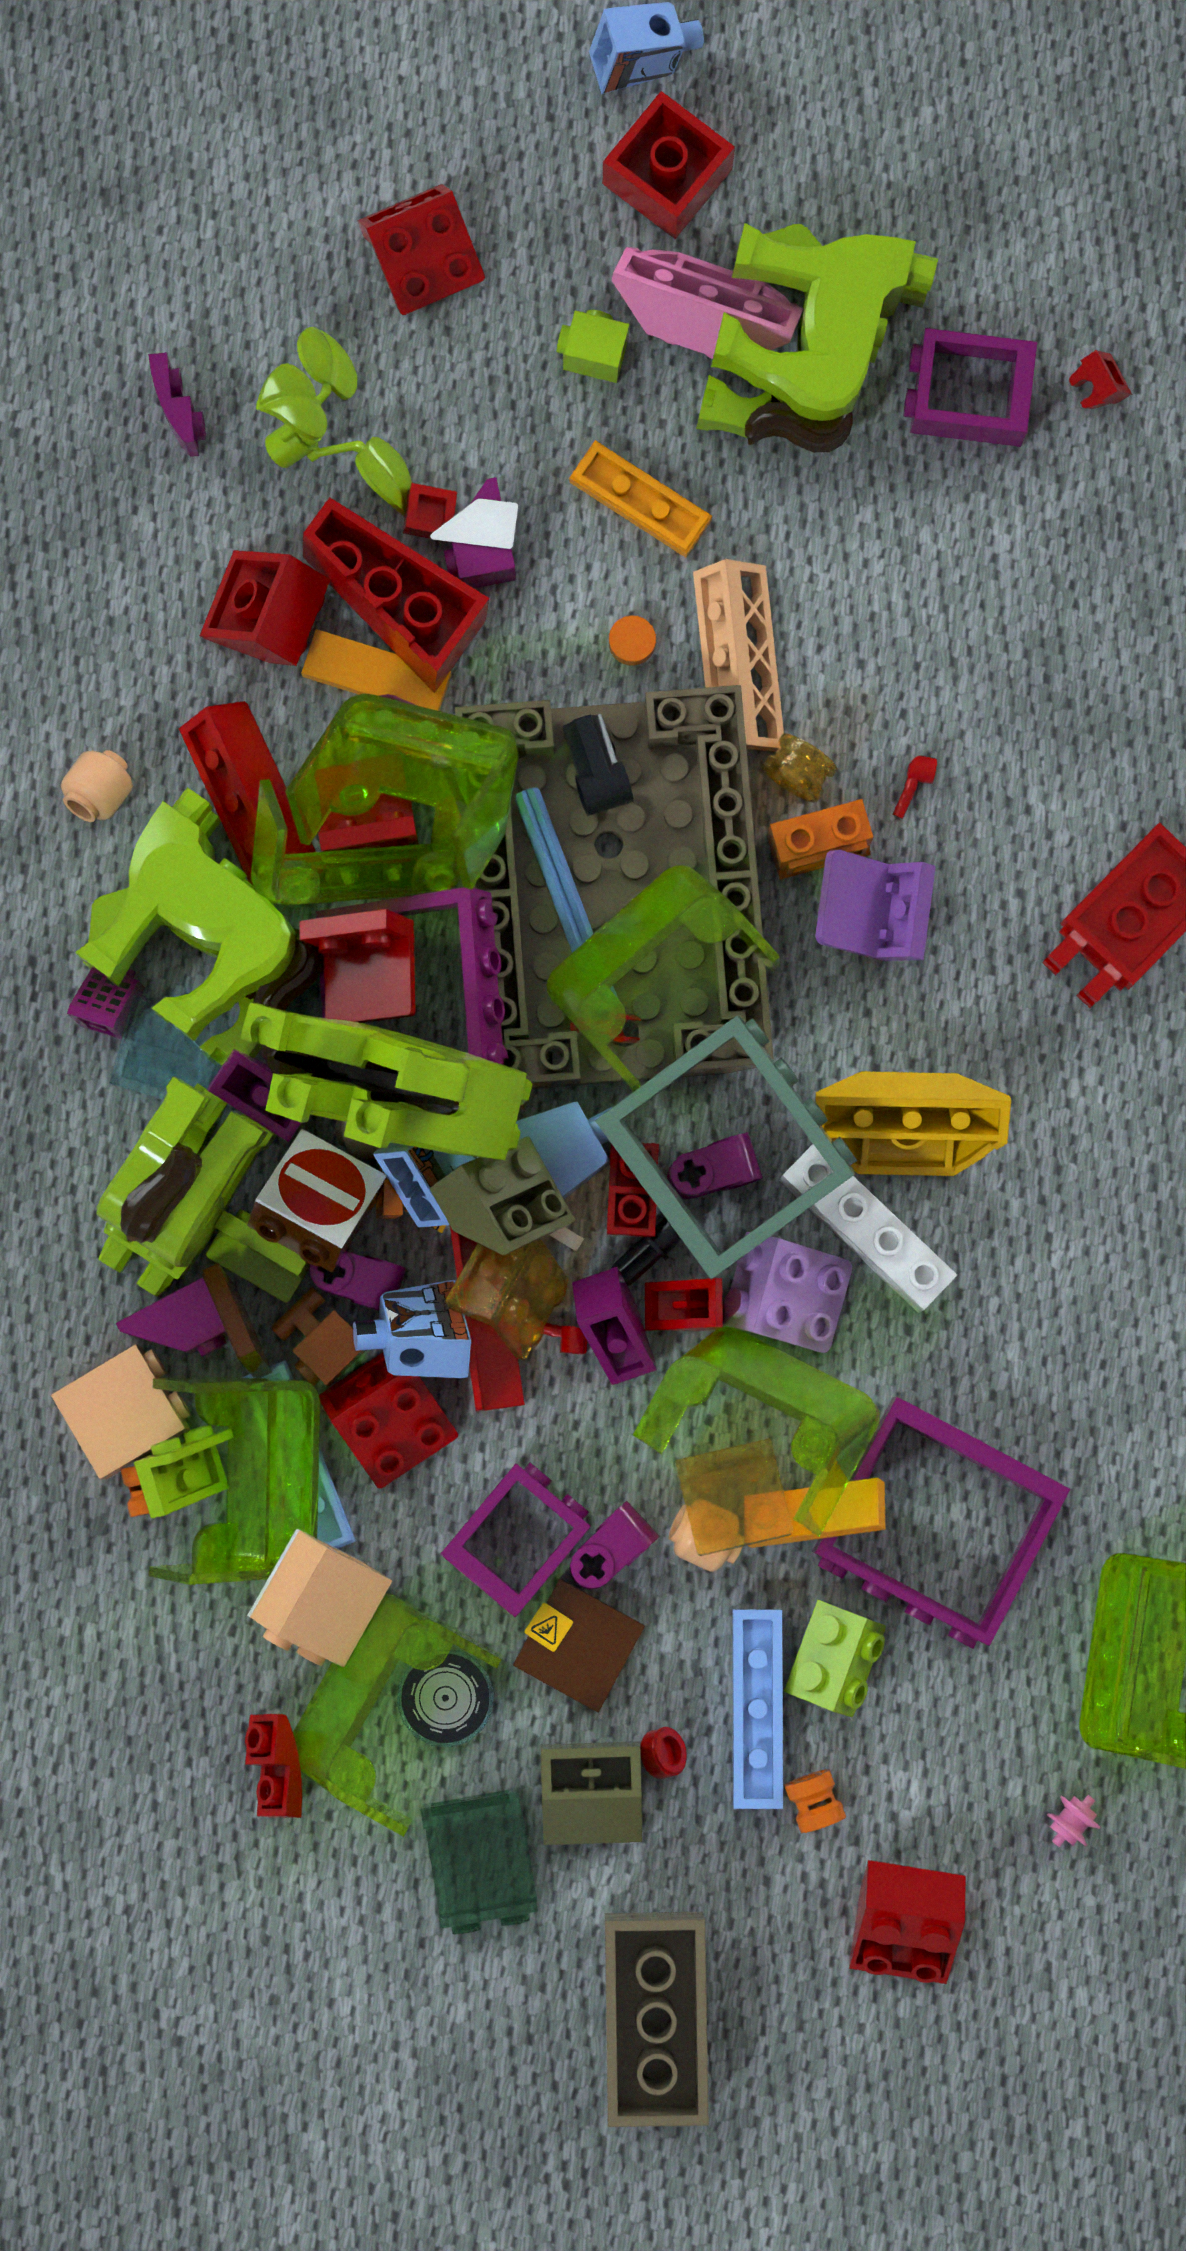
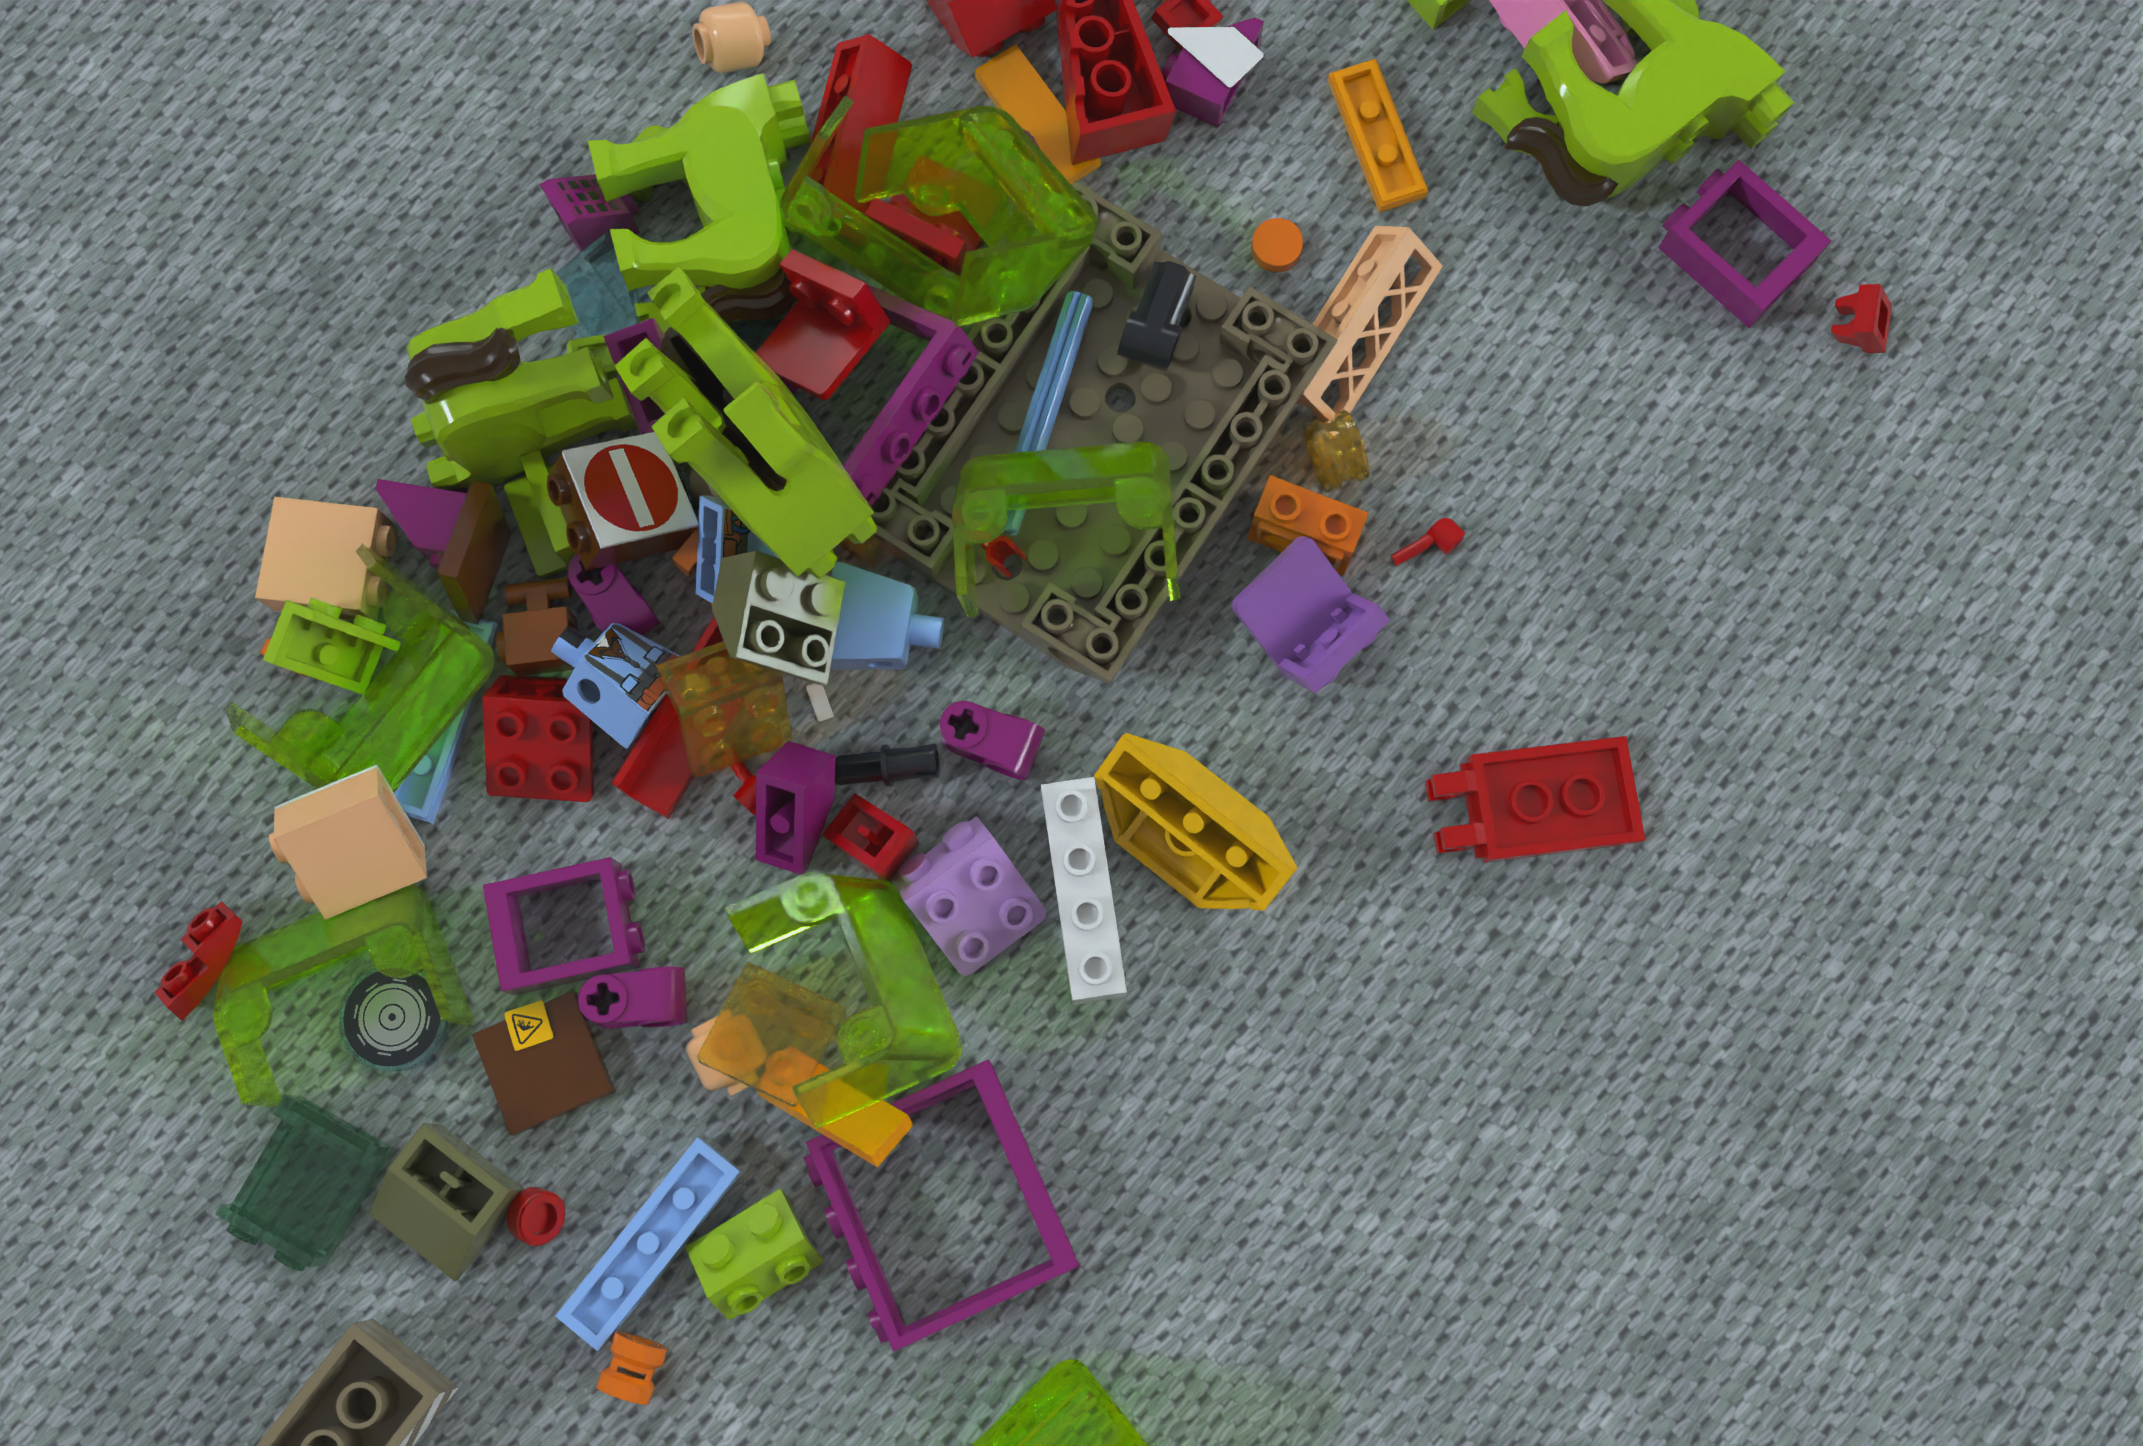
camera: 45 degrees right, 5 degrees down
(629, 1205) = (906, 703): red slope -> none
(660, 1189) = (922, 718): sand green window -> none

